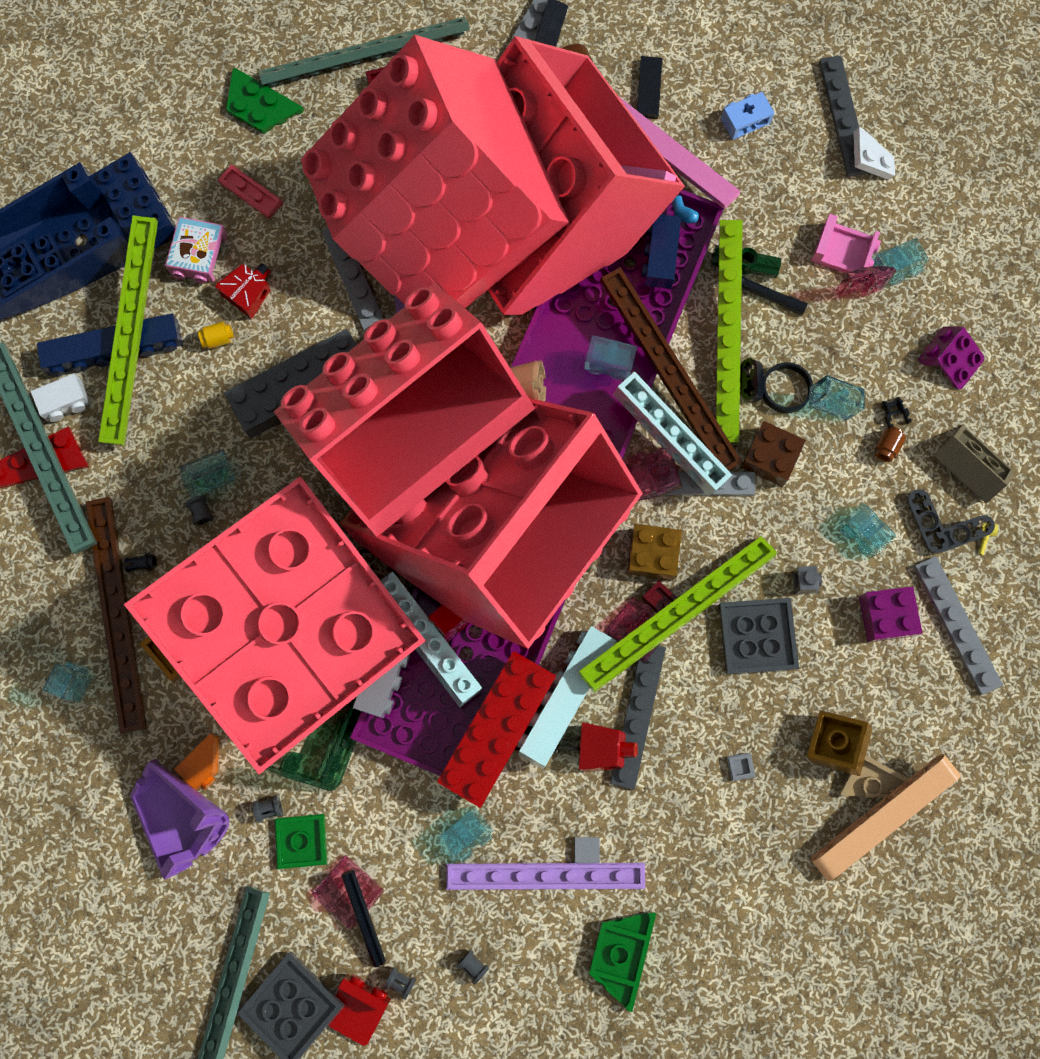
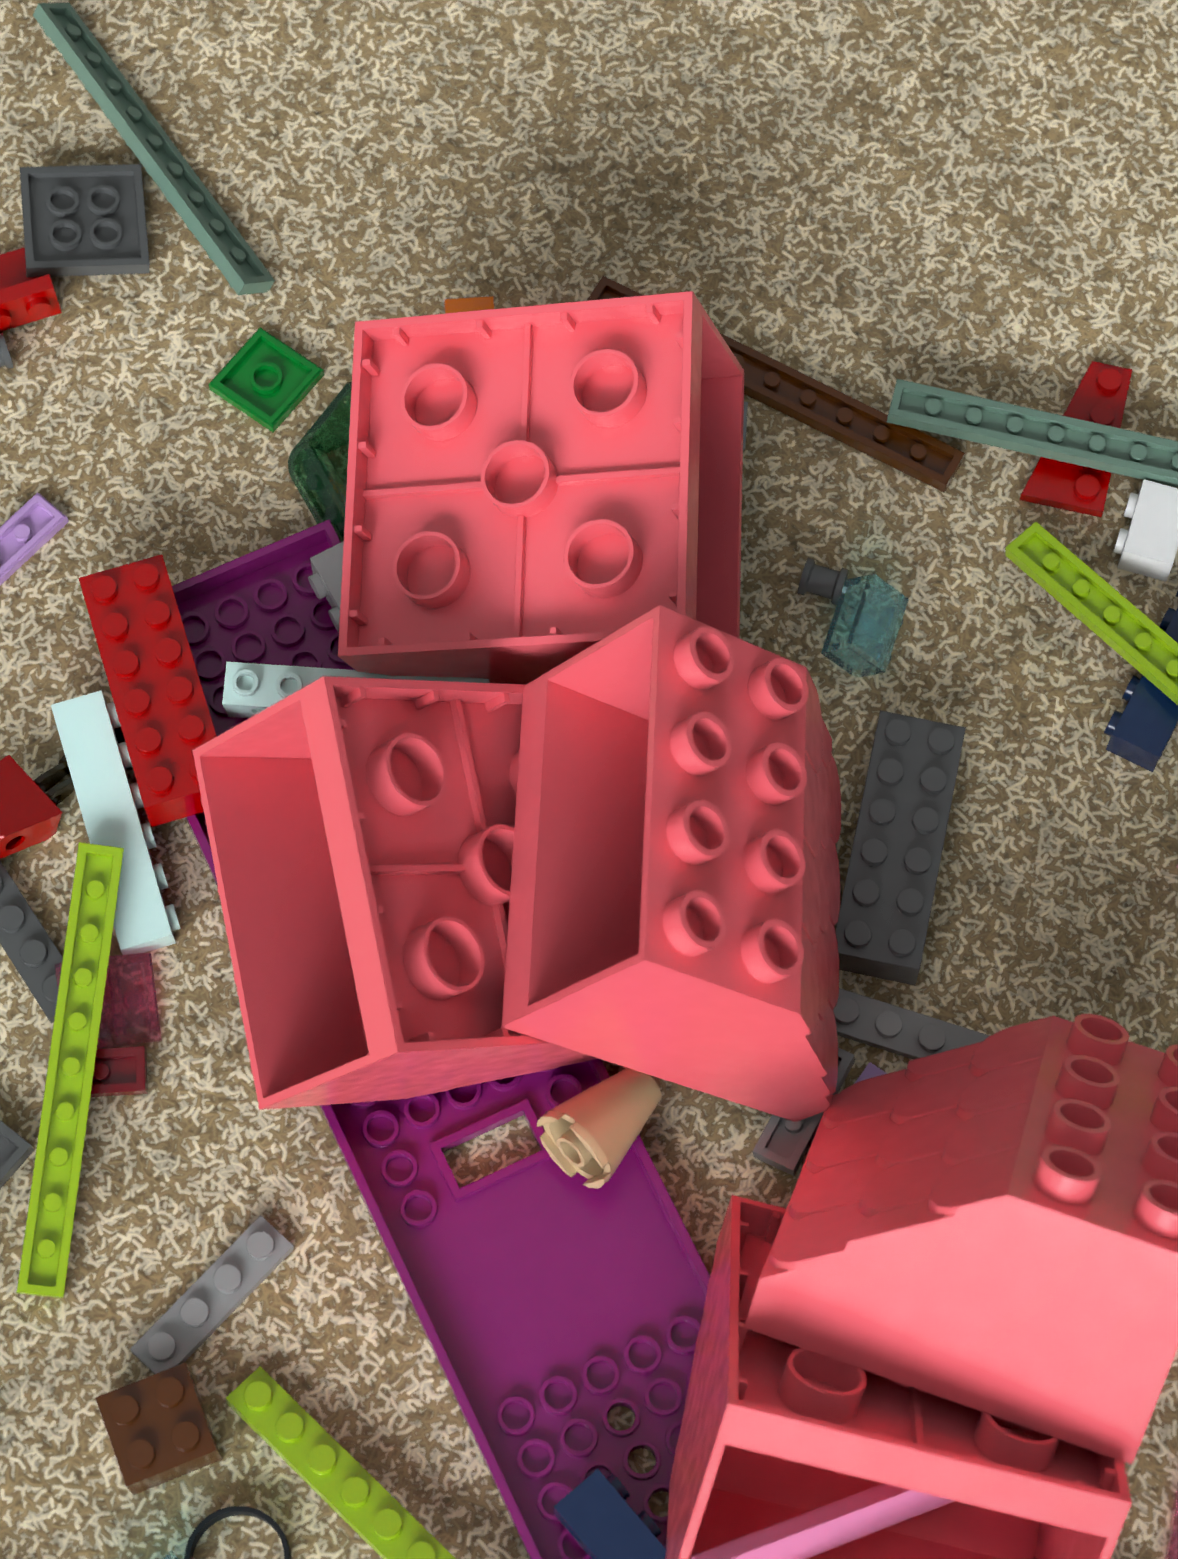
camera: 135 degrees right, 10 degrees down
(68, 681) = (721, 259): clear light blue brick -> none
(143, 562) = (815, 460): black pin -> none
(176, 819) = (433, 257): medium lavender cone -> none
(215, 335) = (1078, 797): yellow brick -> none
(245, 288) = (1119, 894): red torso -> none
(267, 809) = (339, 369): dark grey bush -> none
(334, 897) = (151, 384): clear pink slope -> none
(363, 918) = (101, 370): black axle -> none
(465, 835) = (75, 550): clear light blue brick -> none
(610, 358) = (522, 1301): clear light blue brick -> none
(654, 473) = (300, 1223): clear pink slope -> none
(654, 552) = (188, 1118): pearl gold brick -> none
(669, 367) = (425, 1379): reddish brown plate -> none
(671, 434) = (321, 1280): light aqua brick -> none
(752, 379) = (299, 1513): black beam -> none

